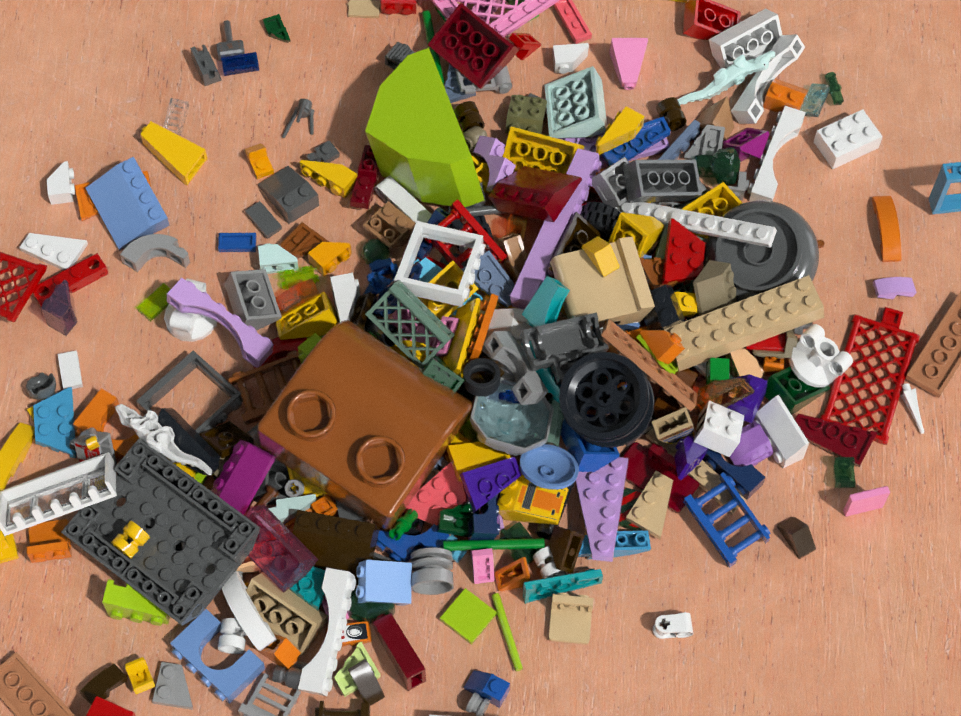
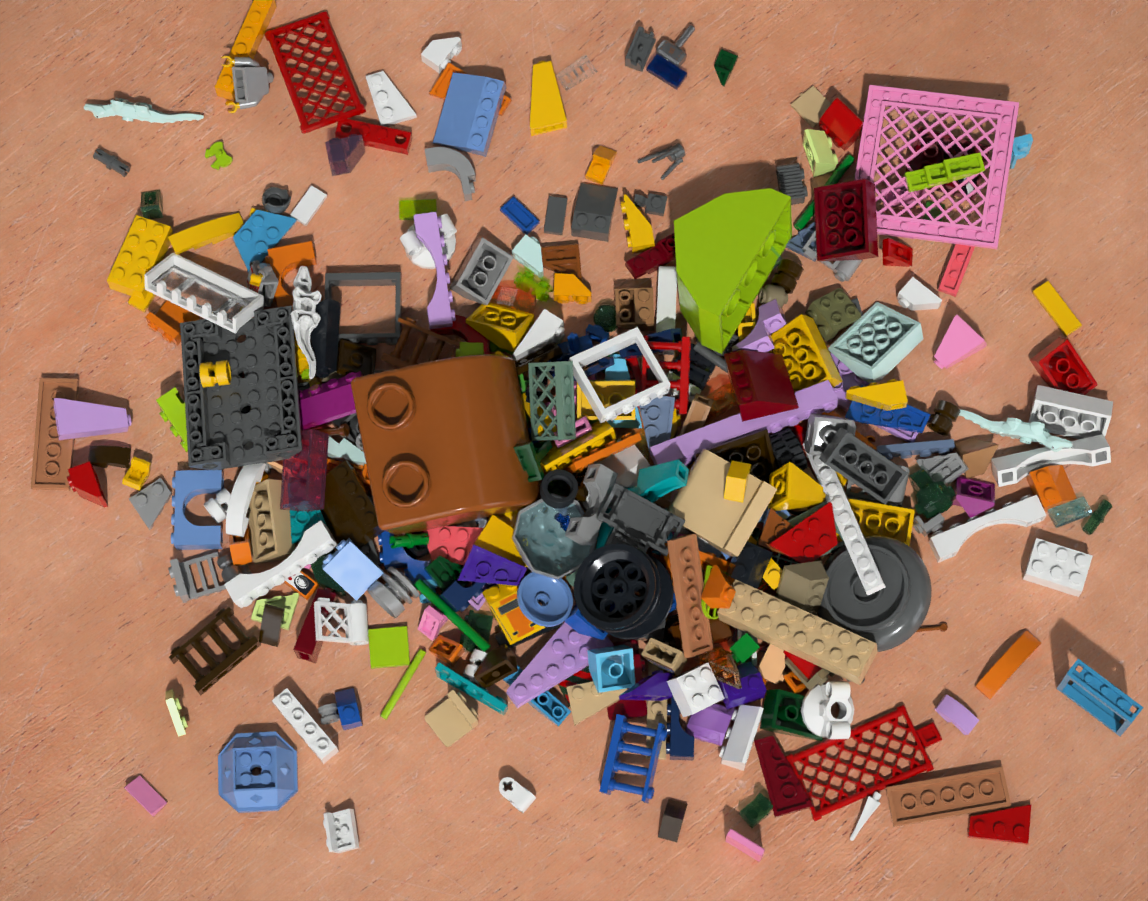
camera: 50 degrees right, 10 degrees up
(57, 672) = (86, 419): none -> lavender slope
(402, 26) = (819, 152): none -> yellowish green slope
(424, 622) = (353, 623): none -> white piece
(645, 470) = (612, 668): none -> medium azure slope

